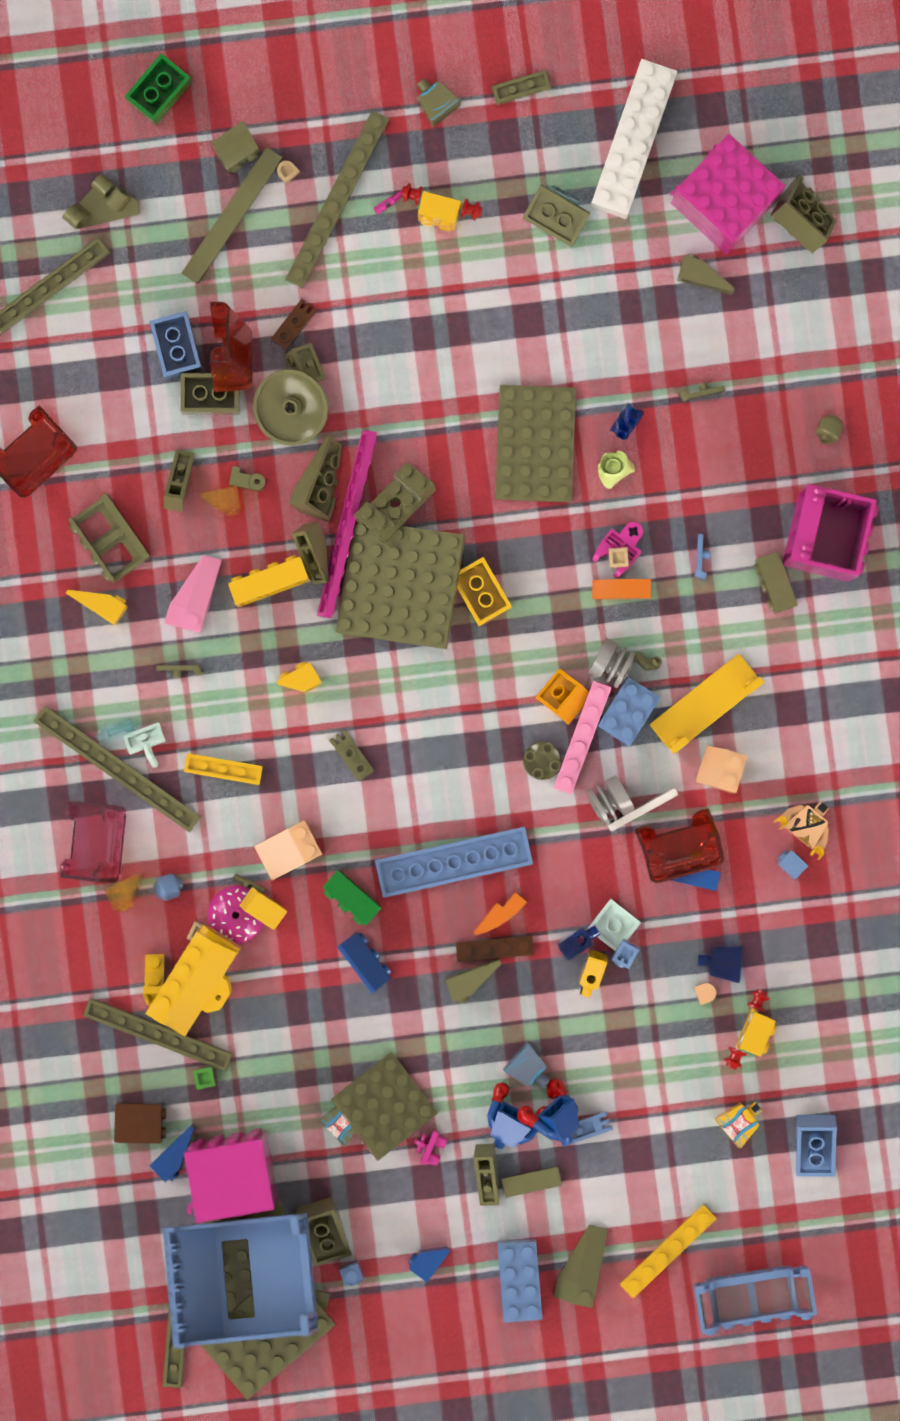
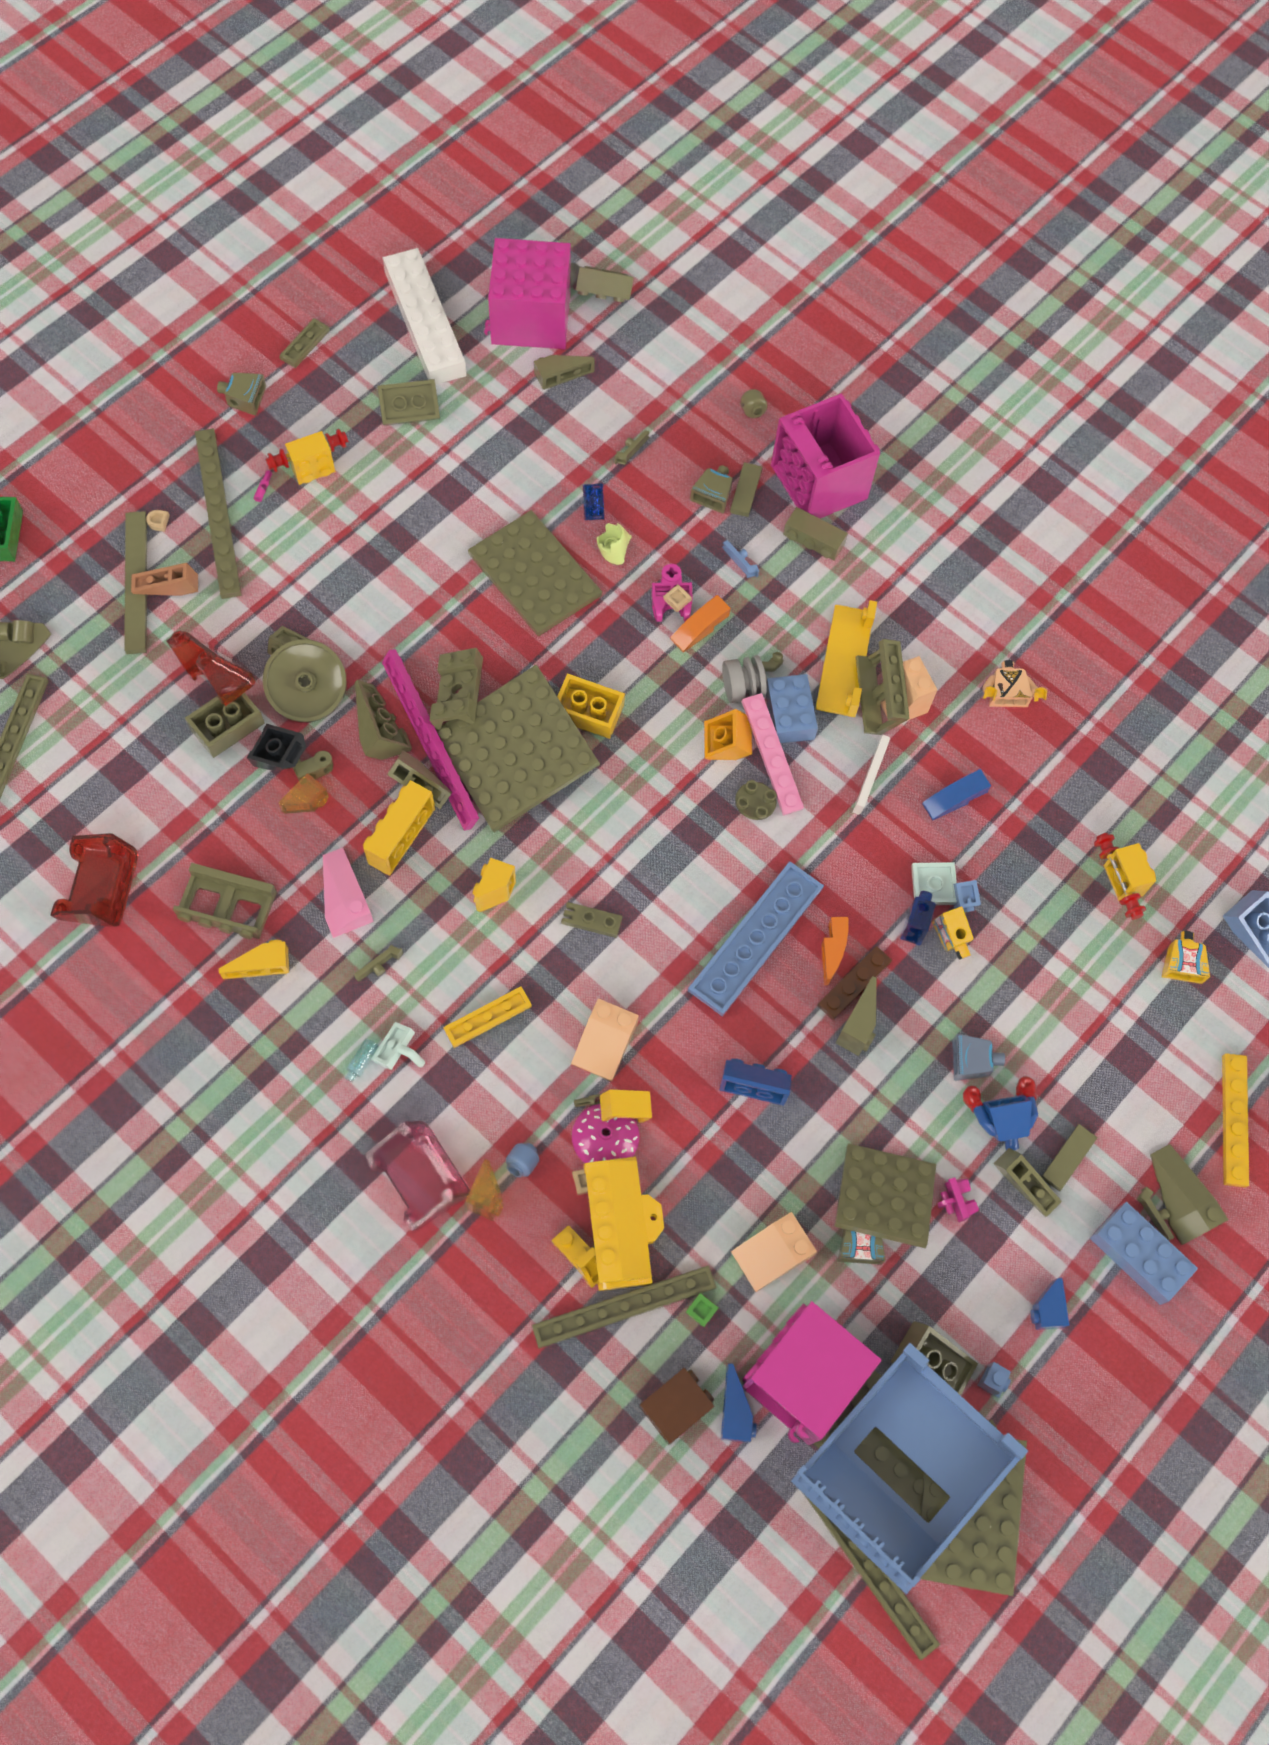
camera: 45 degrees left, 20 degrees down
(117, 769) = (388, 1092): olive plate -> none
(176, 345) = (161, 703): medium blue brick -> none
(178, 481) = (252, 810): olive slope -> none
(229, 451) = (277, 748): none -> black slope
(235, 148) = (96, 522): olive slope -> none
(251, 237) = (170, 580): none -> nougat slope
(281, 1080) = (774, 1252): none -> light nougat slope
(293, 325) = (256, 626): reddish brown hinge -> none
(351, 898) = (697, 1032): green brick -> none
(554, 1267) = (1157, 1218): none -> olive piece
(556, 1120) = (1043, 1074): blue torso -> none
(591, 1127) = (1069, 1072): medium blue hinge -> none
(610, 800) = (841, 782): light grey wheel -> none
(681, 850) = (937, 776): clear red windscreen -> none
(704, 754) = (891, 690): none -> olive window
(705, 993) = (1057, 879): light nougat tile -> none
(723, 962) = (1049, 842): clear blue torso -> none
(732, 481) = (713, 489): none -> olive torso
(758, 500) = (746, 489): none -> olive tile
(791, 864) = (1026, 725): medium blue brick -> none

